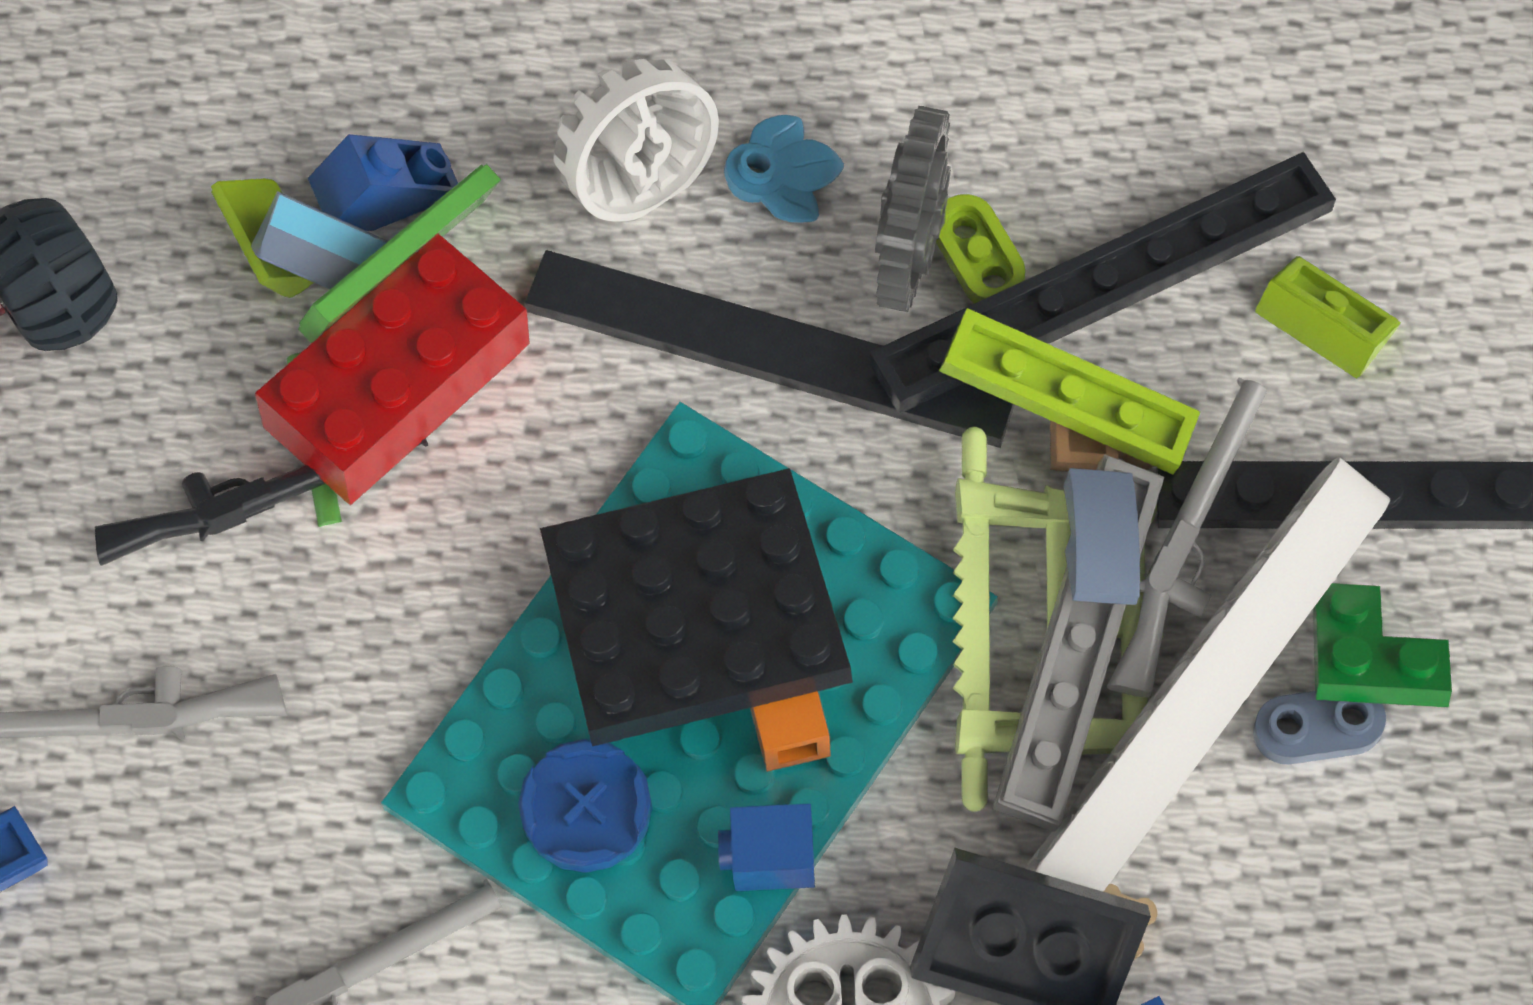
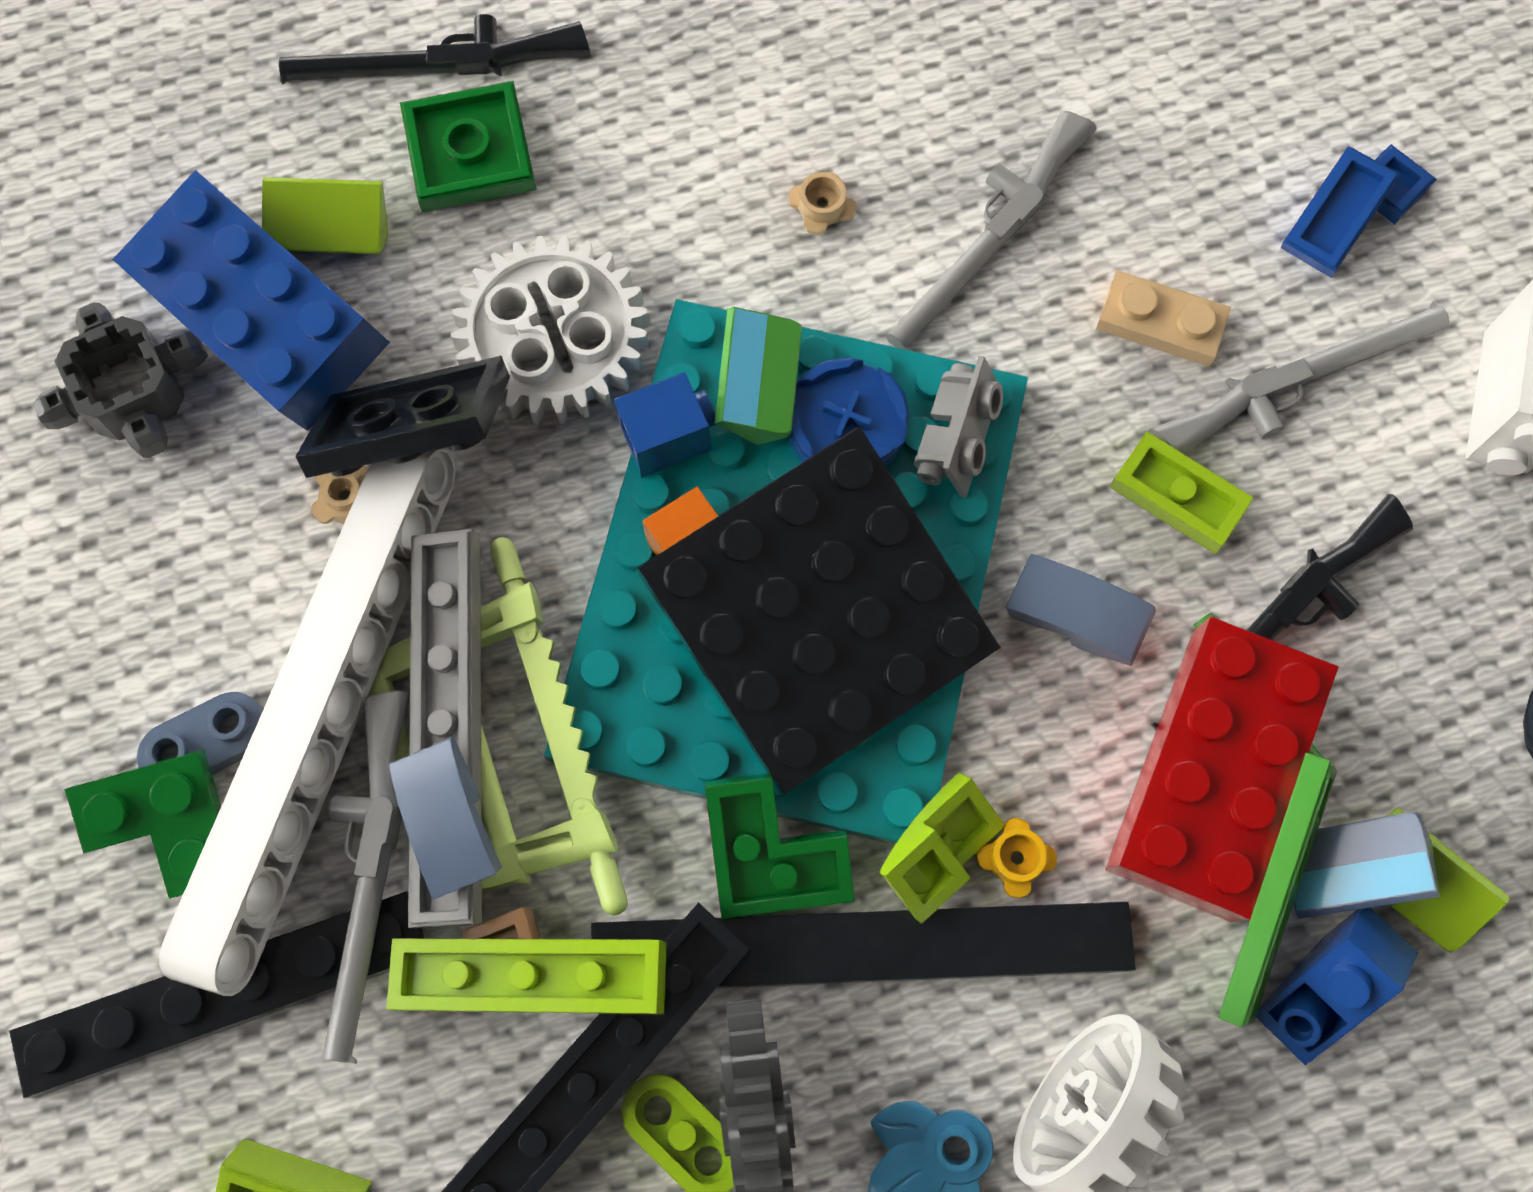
camera: 155 degrees right, 5 degrees up
(212, 824) = (1163, 318): none -> tan plate
(292, 635) = (1181, 492): none -> lime plate
(443, 560) = (1083, 607): none -> sand blue slope
(461, 767) = (969, 402): none -> light grey hinge
(598, 356) = (1035, 854): none -> yellow plate
(655, 867) = (758, 375): none -> bright green slope
(685, 384) = (931, 852): none -> lime slope
(832, 429) = (768, 872): none -> green plate

